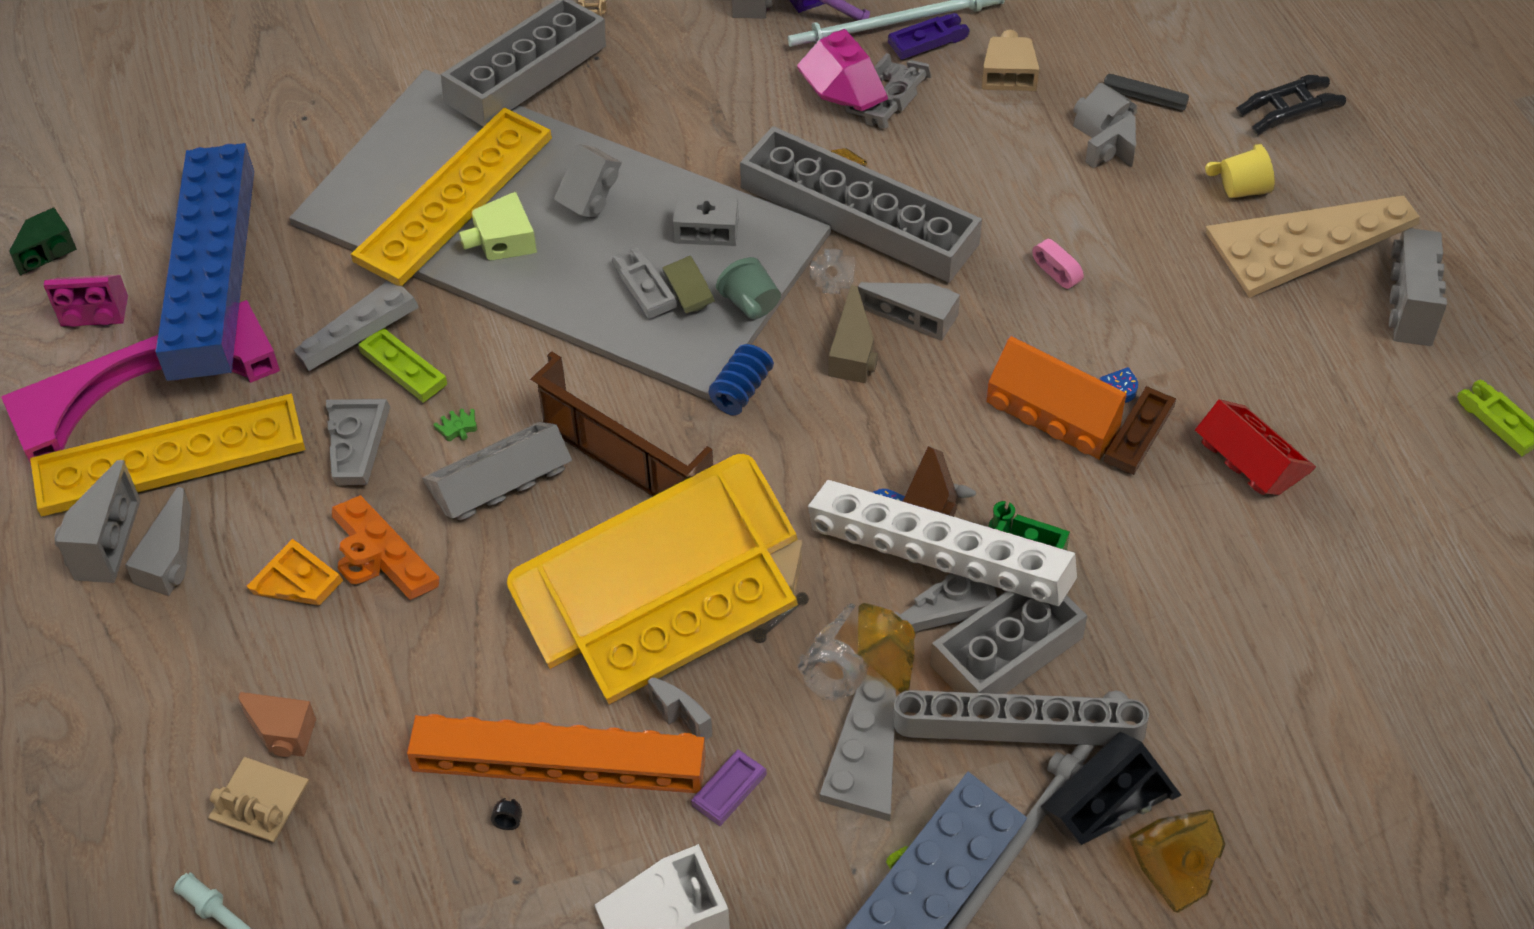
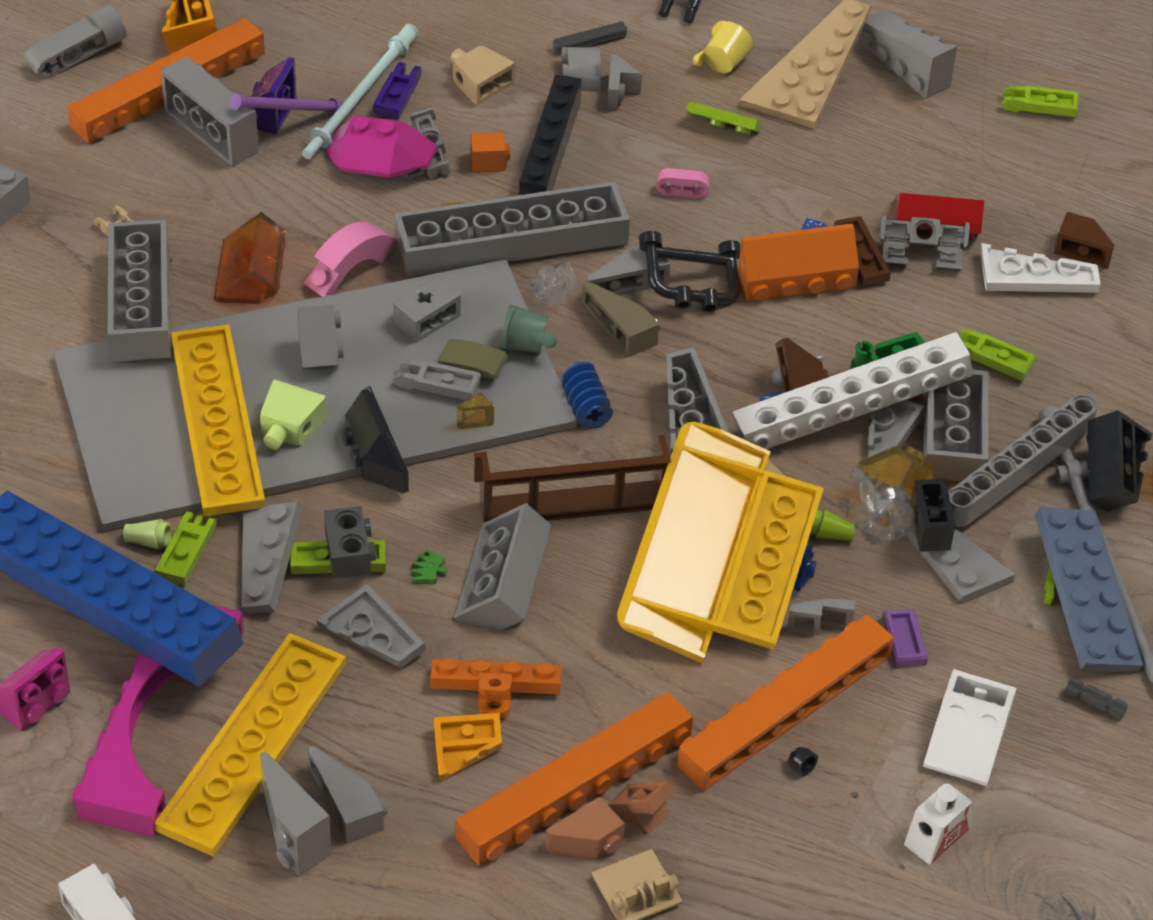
camera: 50 degrees left, 5 degrees down
(309, 250) = (151, 533): none -> yellowish green cone
(316, 277) = (185, 548): none -> lime hinge
(328, 673) = (573, 778): none -> orange brick
(344, 740) = (643, 804): none -> nougat slope
(405, 355) = (348, 543): none -> dark grey brick
(533, 290) = (373, 444): none -> black wedge
(631, 327) = (475, 412): none -> clear yellow slope
(641, 97) = (251, 262): none -> clear orange slope
(709, 130) = (345, 250): none -> bright pink arch
(724, 658) = (806, 569): none -> clear blue piece
(788, 639) = (830, 526): none -> lime cone
(808, 449) = (690, 393): none -> light grey wedge
(862, 699) = (932, 515): none -> black brick
(926, 355) = (683, 295): none -> black bar
(930, 130) = (488, 152): none -> orange brick
(992, 152) = (551, 136): none -> black brick
(1140, 611) = (997, 354): none -> lime hinge
(1170, 233) = (721, 118): none -> lime hinge
(1190, 440) = (949, 237): none -> light grey piece
(1270, 559) = (1020, 272): none -> white wing
(1363, 569) = (1084, 241): none -> reddish brown slope

